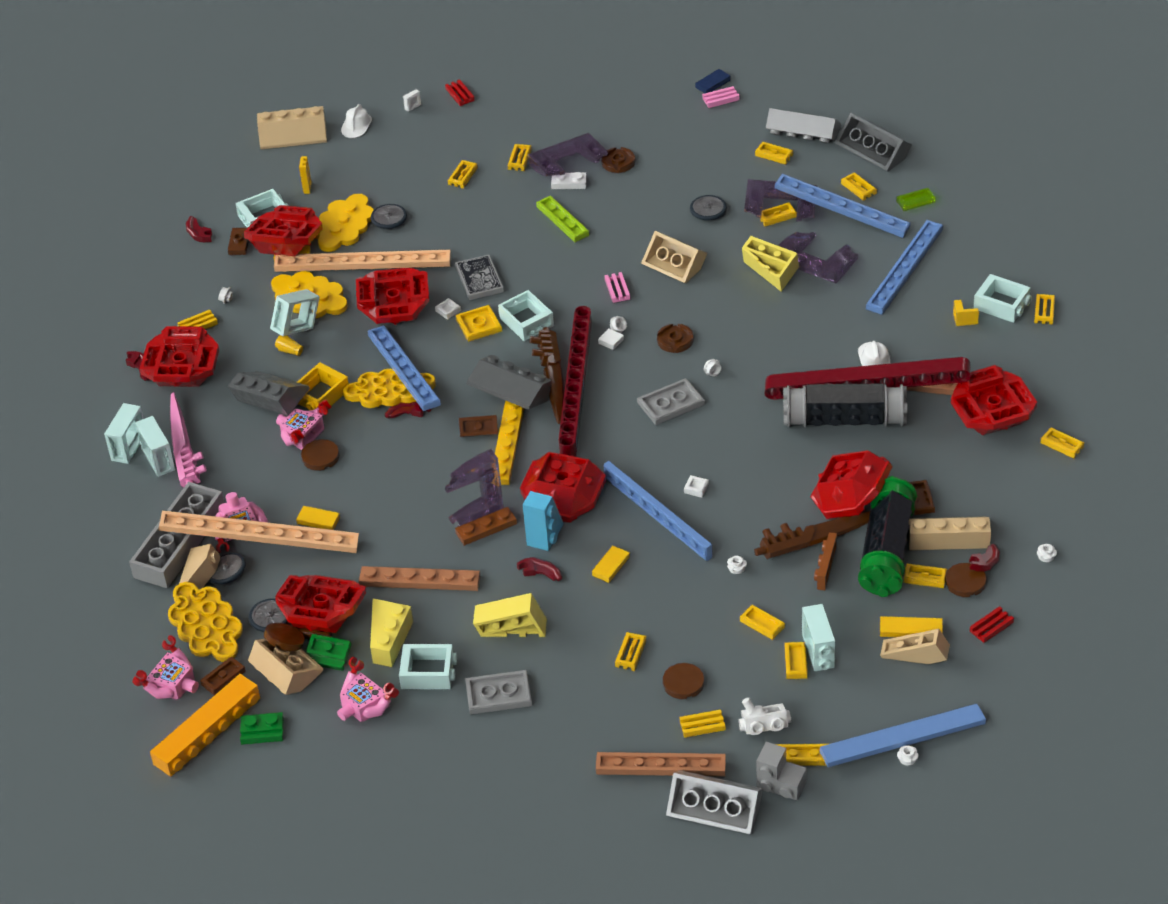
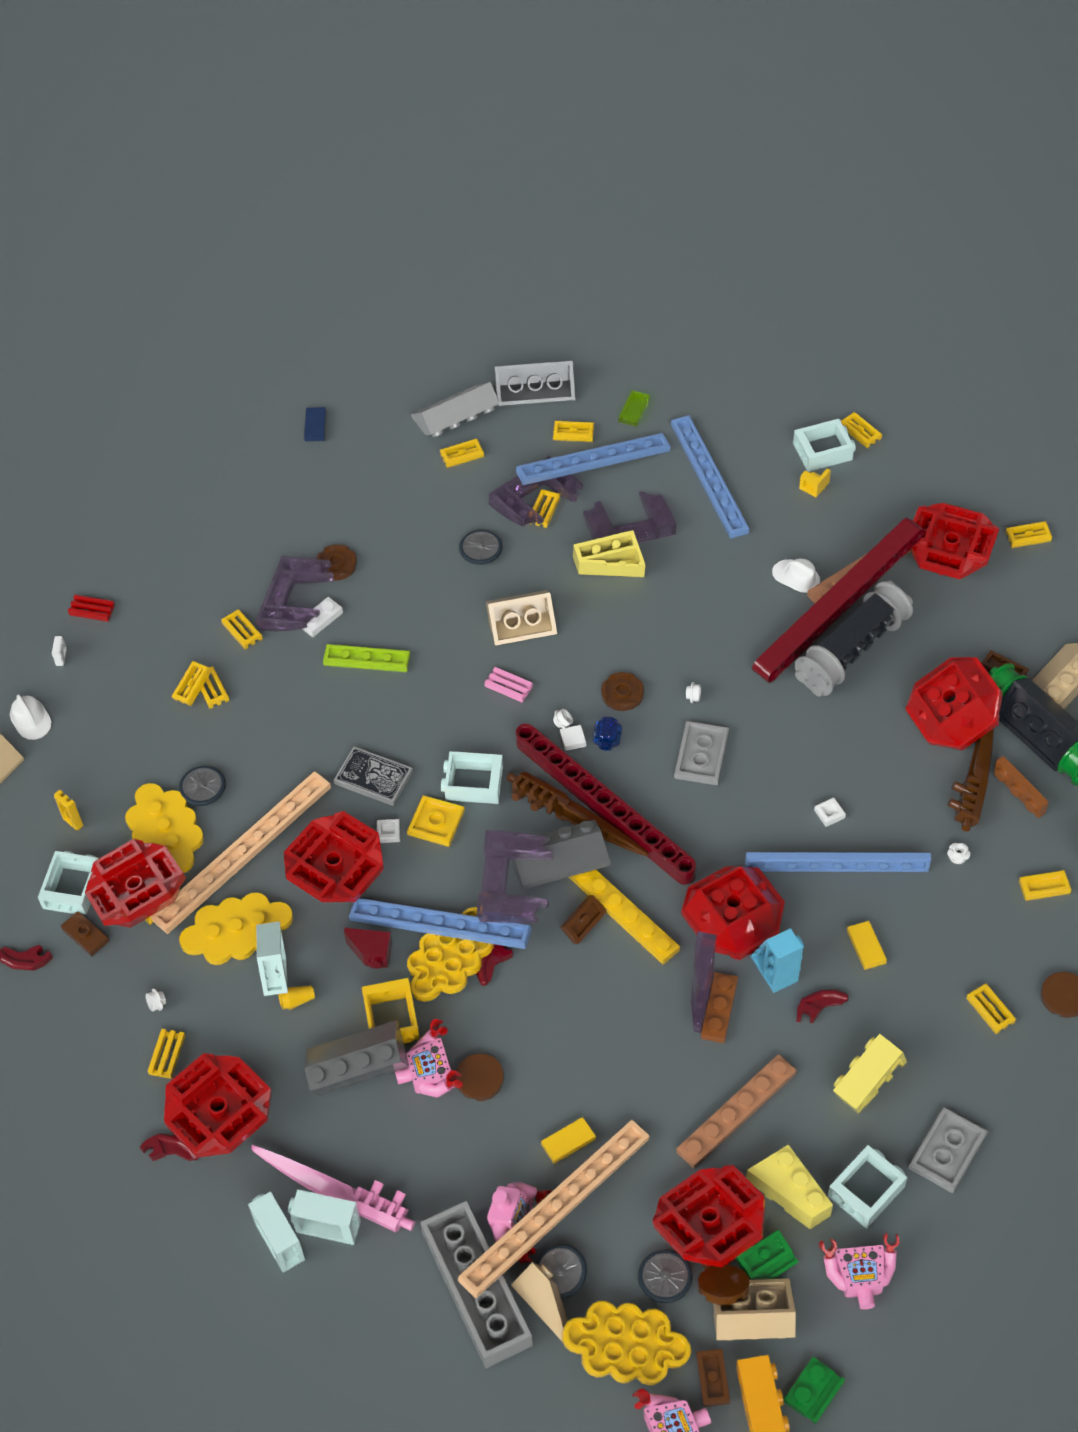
camera: 50 degrees left, 10 degrees up
(356, 352) = (370, 946): none -> dark red slope
(453, 163) = (194, 684): none -> yellow tile
(474, 349) = (493, 901): none -> clear purple wedge
(629, 348) = (607, 733): none -> clear blue head
(720, 97) = (332, 444): bright pink tile -> none

